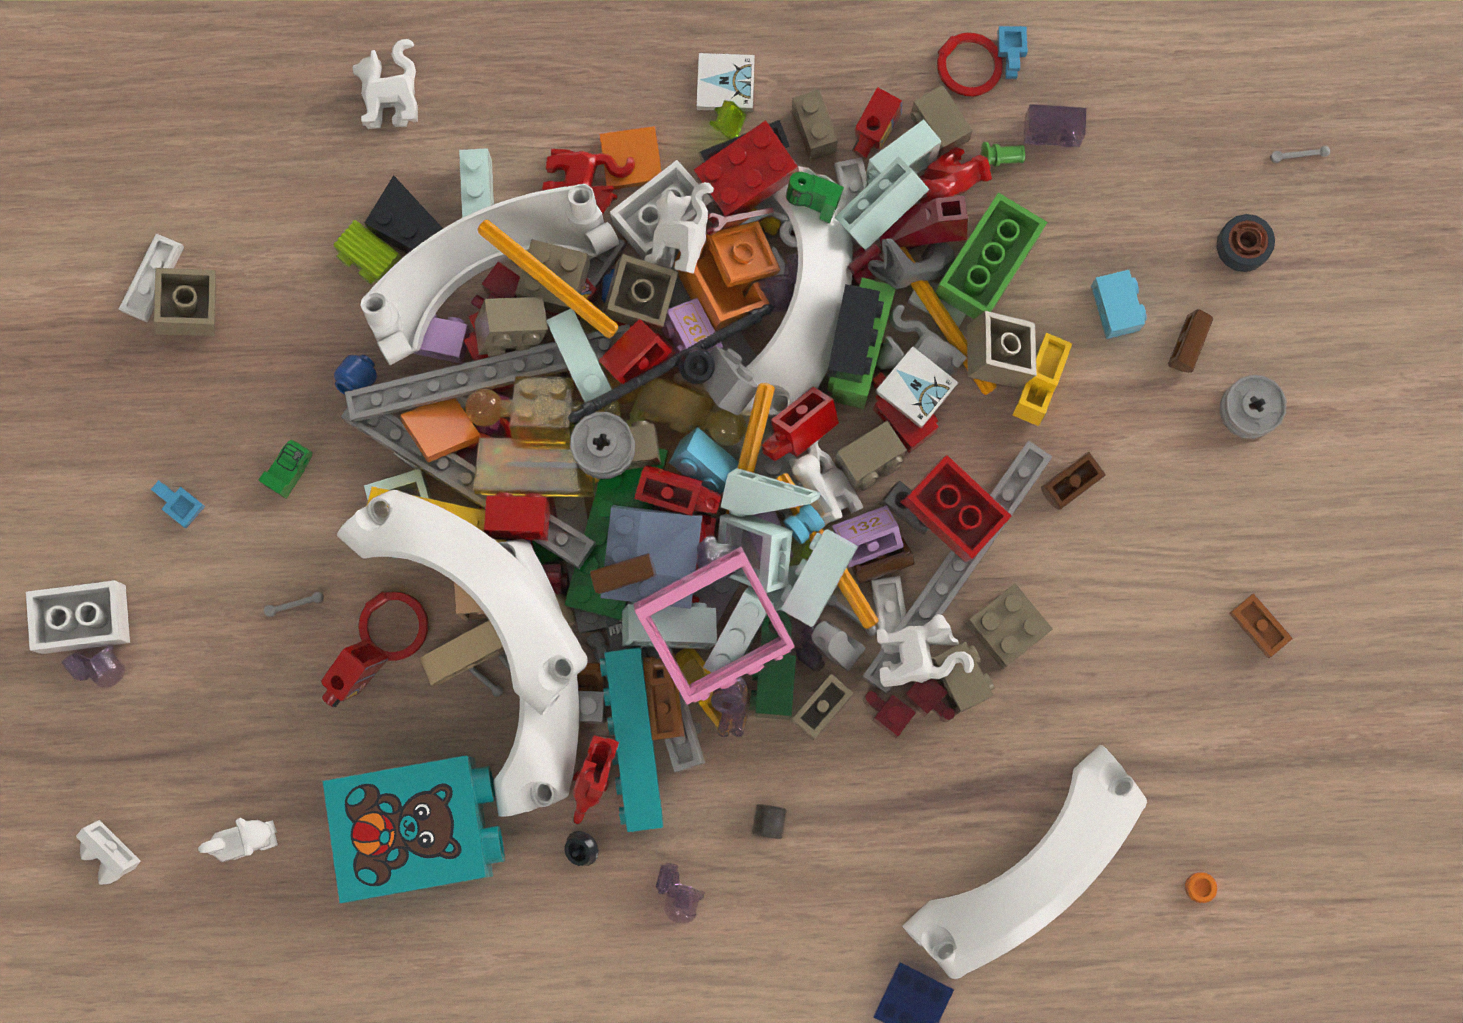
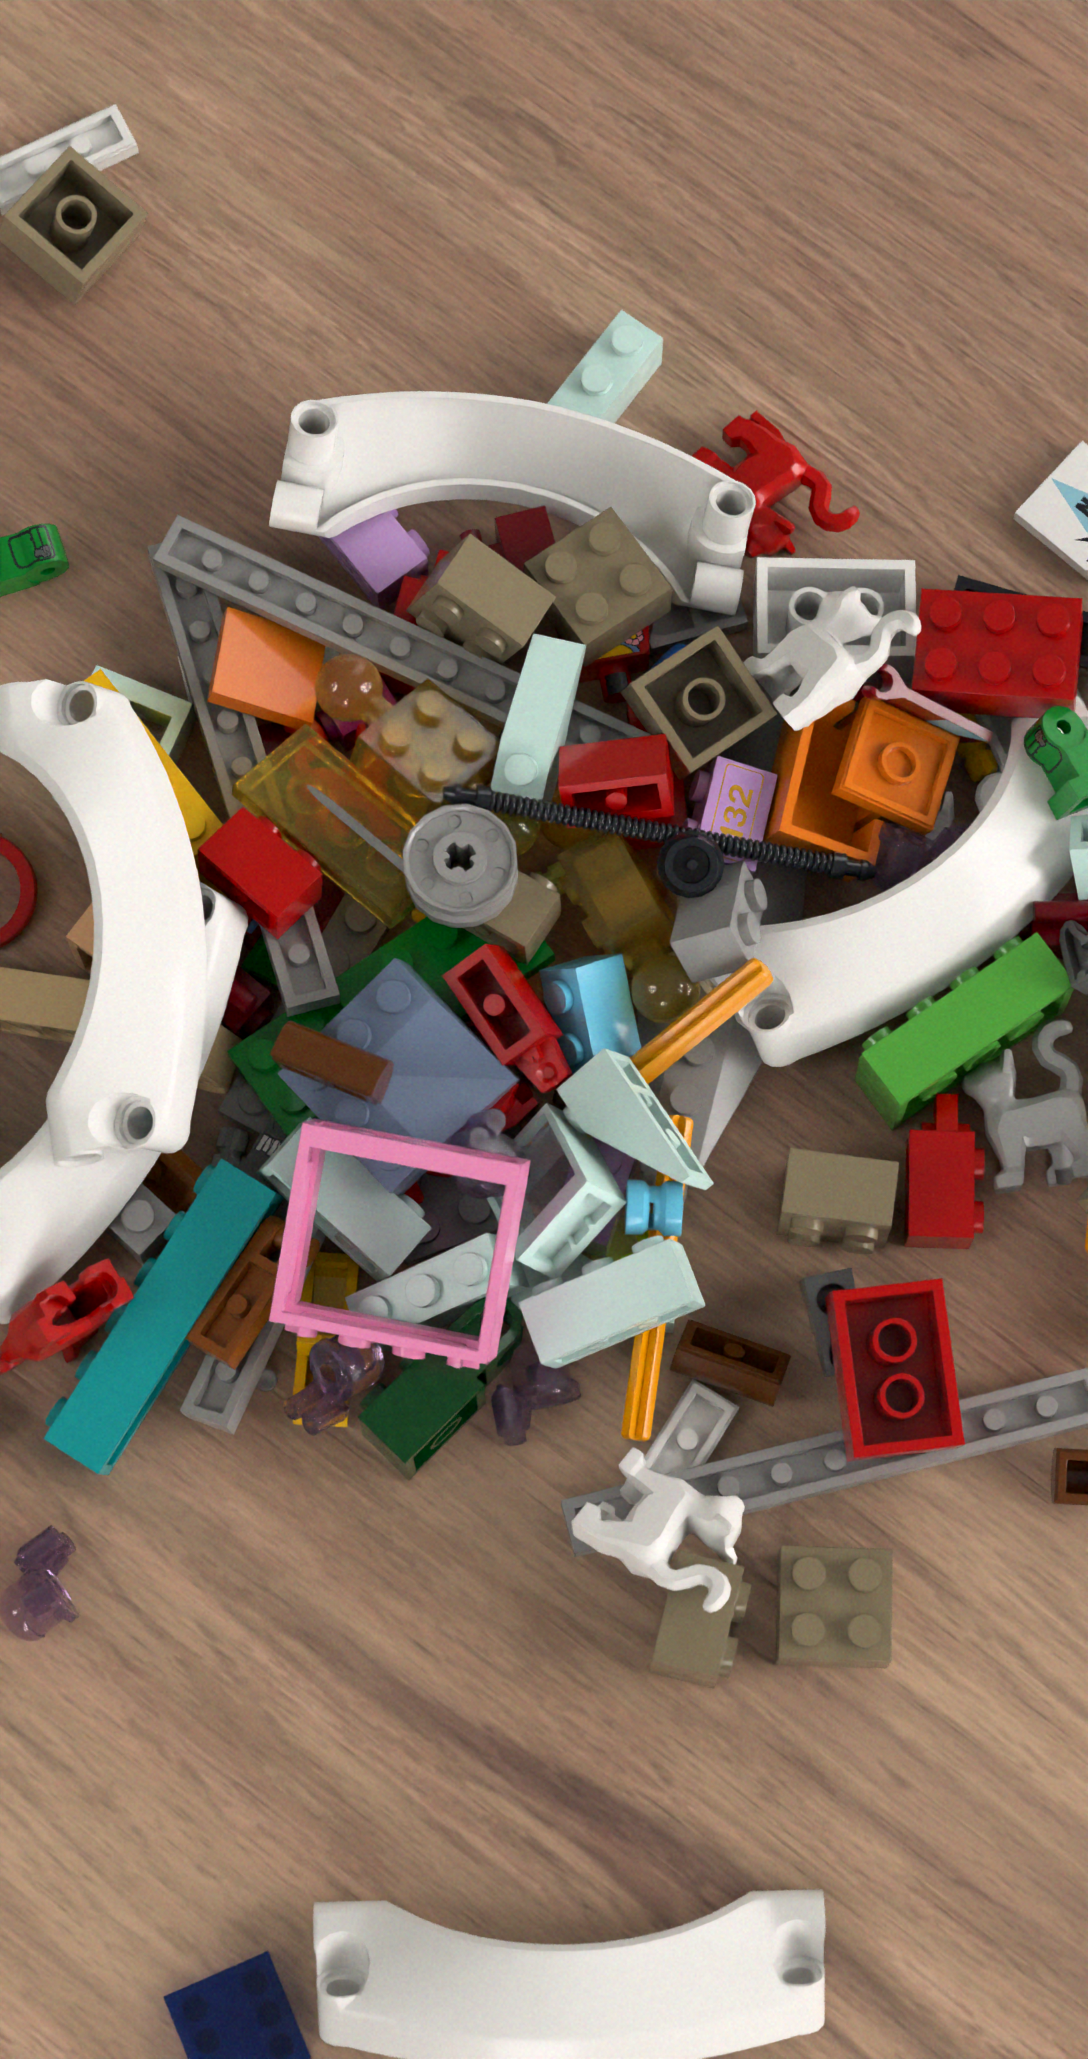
camera: 40 degrees right, 5 degrees down
(355, 373) = (218, 504): blue head -> none
(366, 252) = (374, 346): lime brick -> none
(390, 91) = (595, 157): white animal -> none
(401, 218) = (461, 338): black wedge -> none
(496, 690) = (37, 1096): light grey hinge -> none
(547, 278) = (583, 577): light orange axle -> none
(633, 143) = (885, 503): orange tile -> none
(729, 119) = (1046, 566): clear neon green tile -> none
(769, 821) = (254, 1594): clear smoke piece -> none
(801, 424) = (772, 1071): red hinge -> none
(822, 707) = (465, 1495): dark tan brick -> none
(832, 484) = (743, 1200): white animal -> none
(833, 602) = (612, 1362): light grey hinge -> none
(837, 645) = (560, 1425): light grey leg -> none
(855, 334) = (954, 999): black brick -> none
(872, 532) = (742, 1310): lavender brick -> none
(891, 715) = (555, 1587): dark red brick -> none
(916, 387) = (988, 1154): white tile -> none
(928, 697) = (629, 1611): dark red brick -> none

